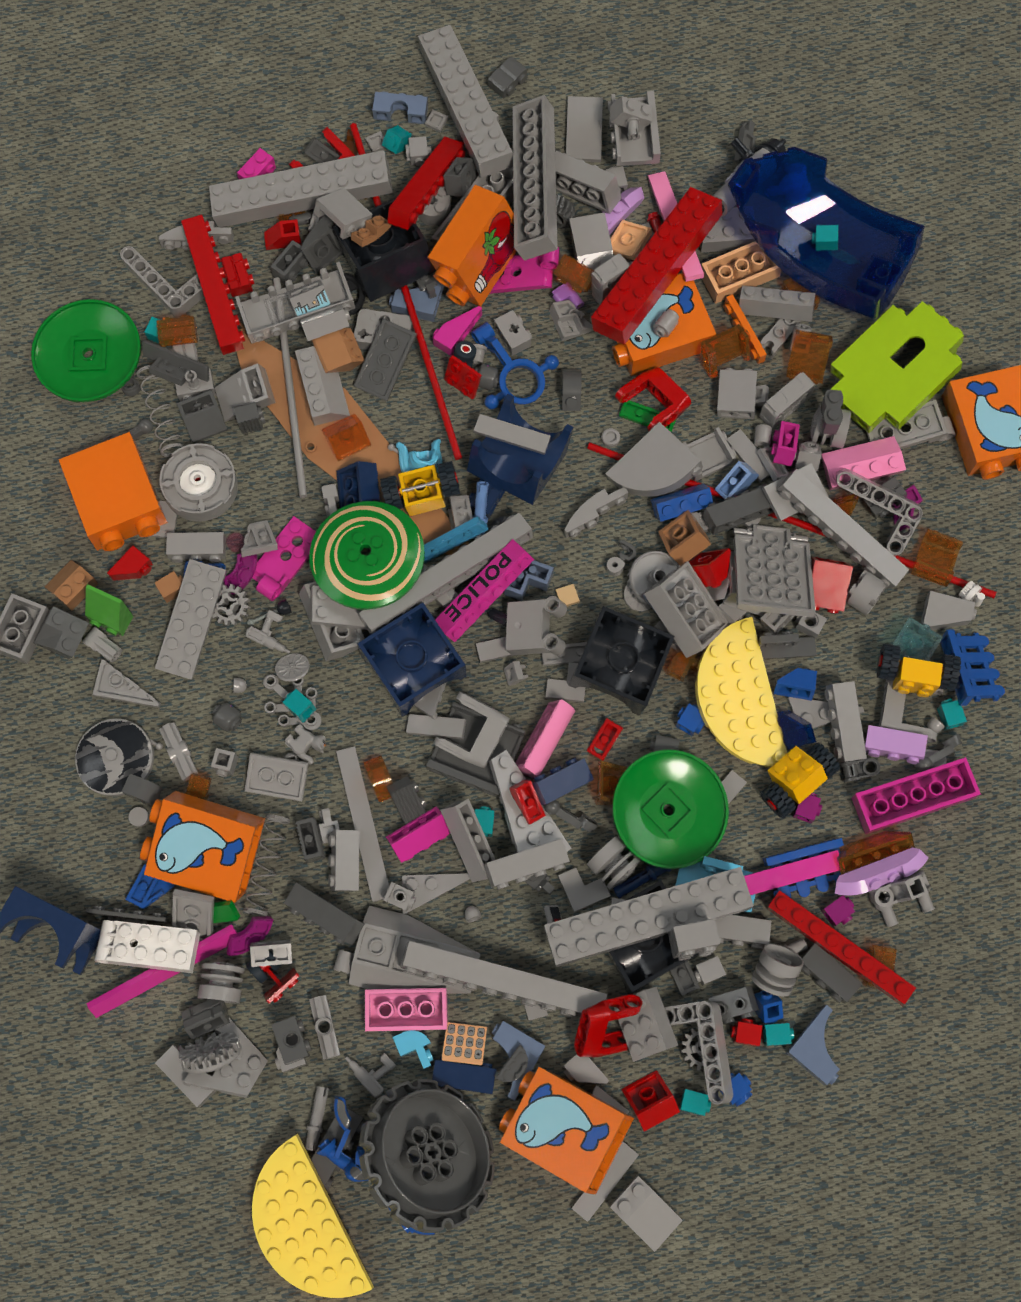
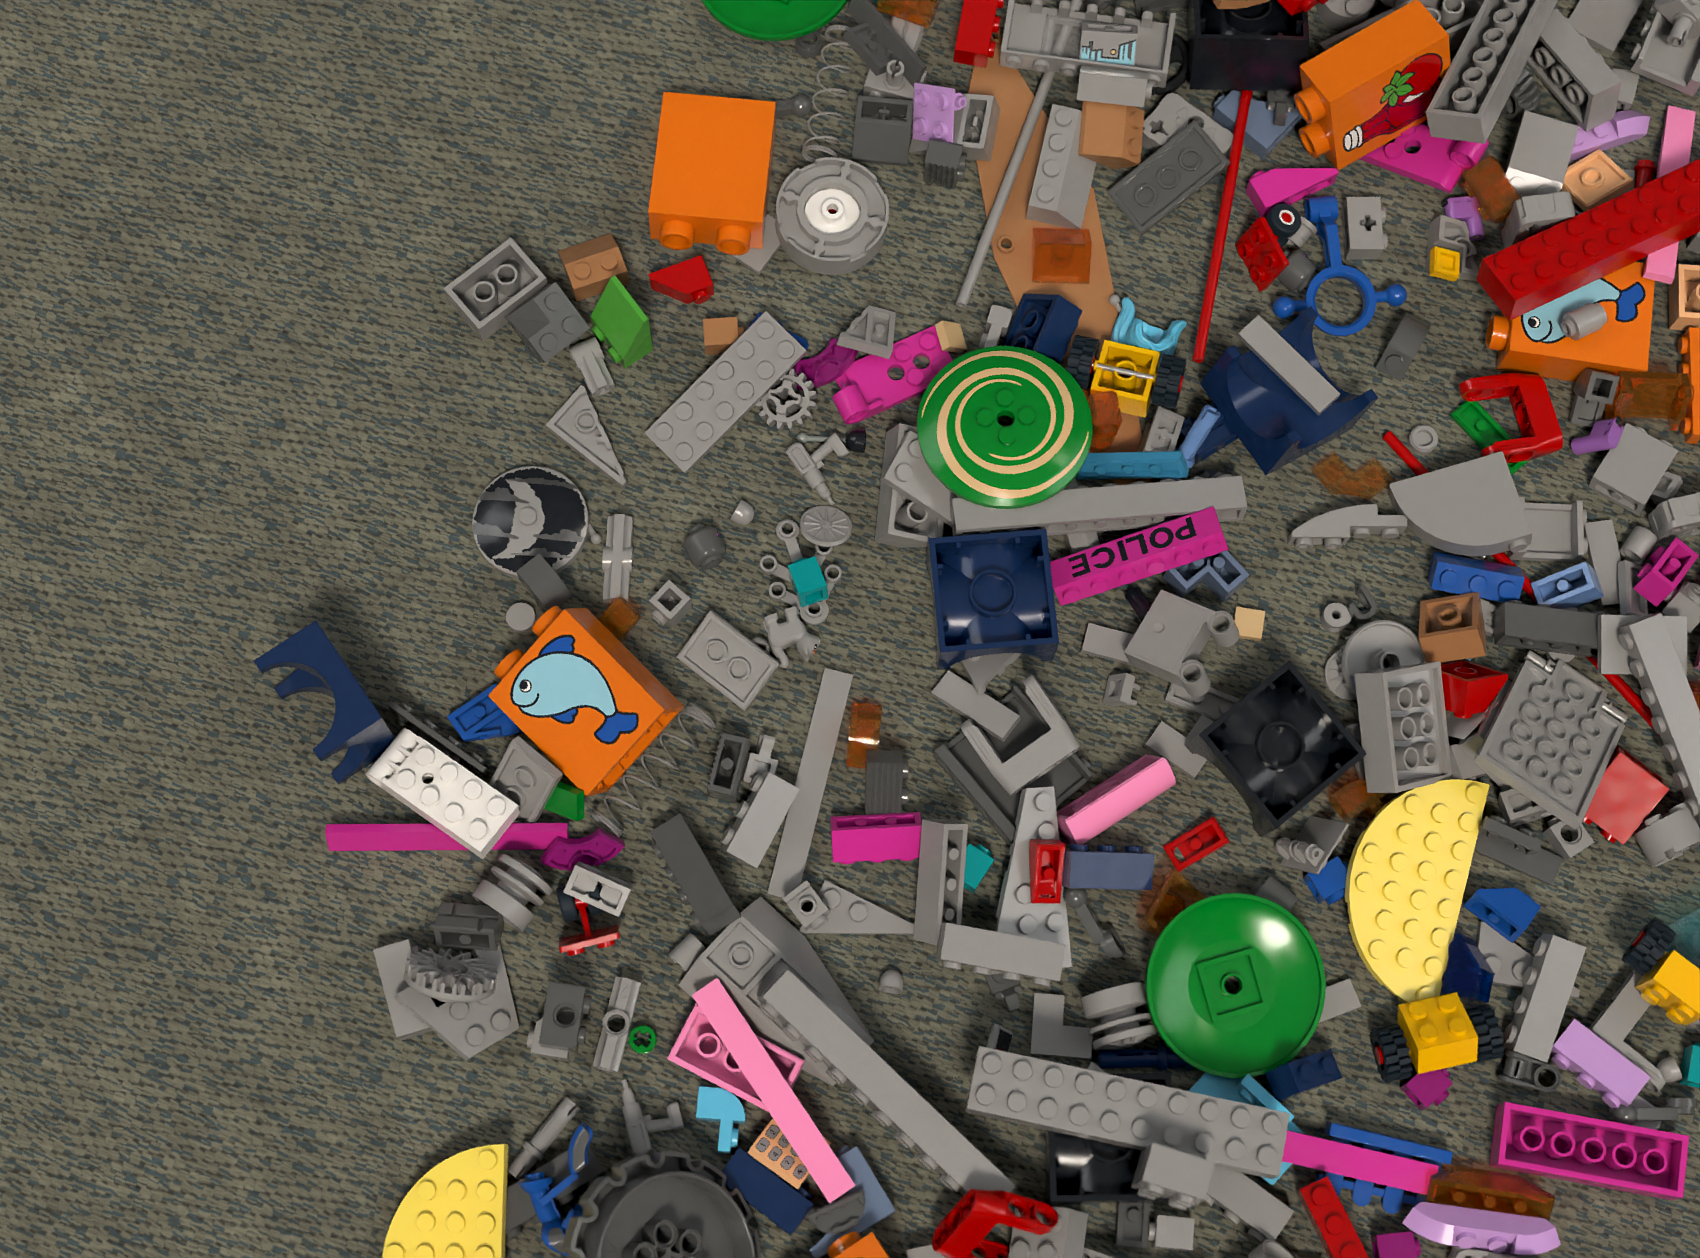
camera: 25 degrees right, 0 degrees up
(196, 546) = (783, 299): light grey brick -> none
(227, 390) = (935, 112): none -> lavender hinge
(235, 542) = (838, 320): clear pink tile -> none
(307, 518) = (950, 337): none -> tan tile
(347, 1033) = (641, 1048): none -> green bush
(423, 519) = (1105, 418): none -> clear orange brick
(437, 1015) = (773, 1091): none -> bright pink tile
(535, 1012) = (906, 1158): light grey tile -> none
(569, 330) = (1444, 264): none -> yellow tile
(576, 485) = (1340, 480): none -> clear orange tile
(671, 704) = (1312, 846): none -> light grey hinge
(692, 362) = (1592, 391): none -> dark grey brick
(711, 384) = (1603, 436): none -> medium lavender piece
(735, 839) = (1303, 1075): none -> dark blue brick

